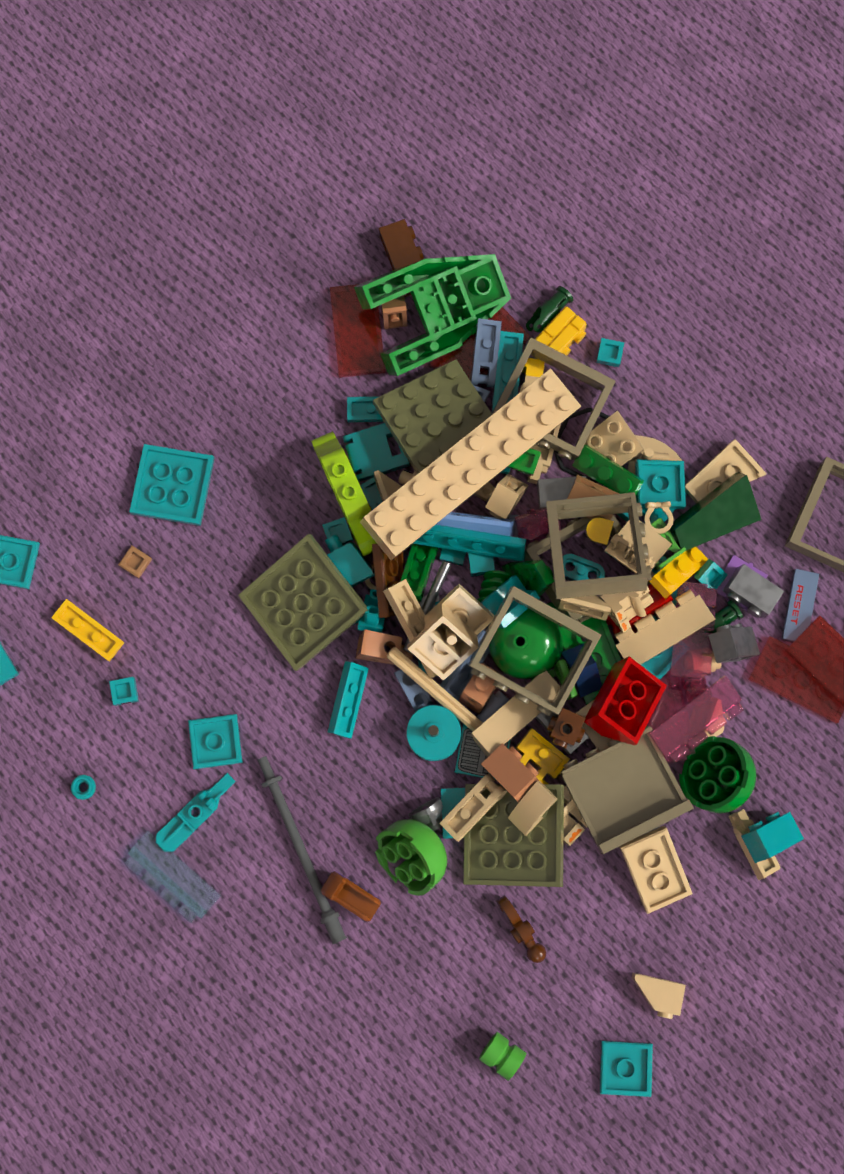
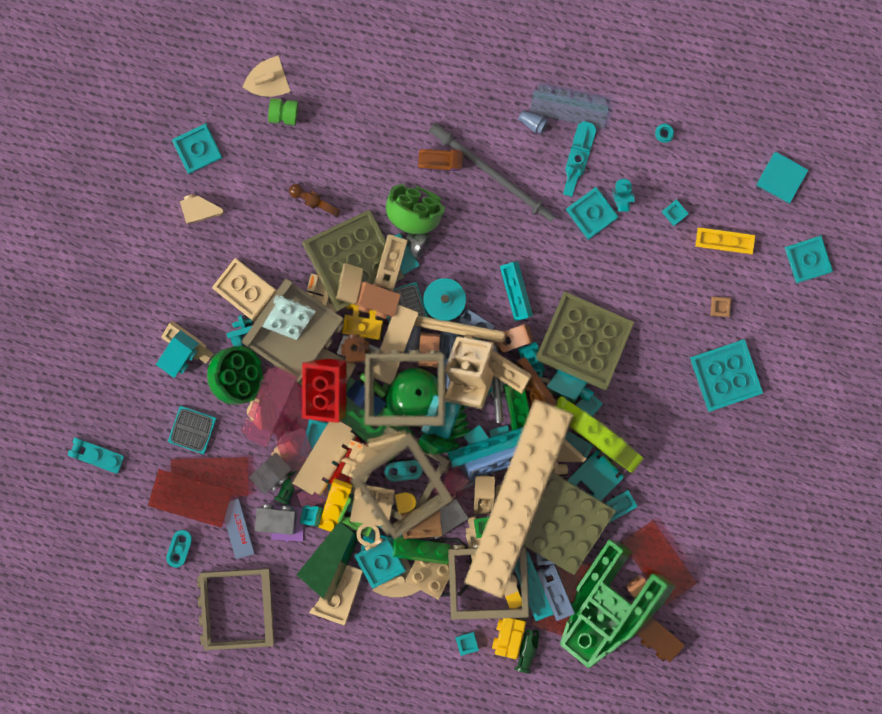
camera: 150 degrees right, 10 degrees up
(168, 740) = (623, 194): none -> teal hips
(221, 882) = (533, 121): none -> sand blue cone
(499, 1106) = (267, 79): none -> tan shield
(623, 807) = (288, 317): none -> light aqua hinge
(692, 821) = (236, 336): none -> teal hips
(796, 743) = (192, 429): none -> tile

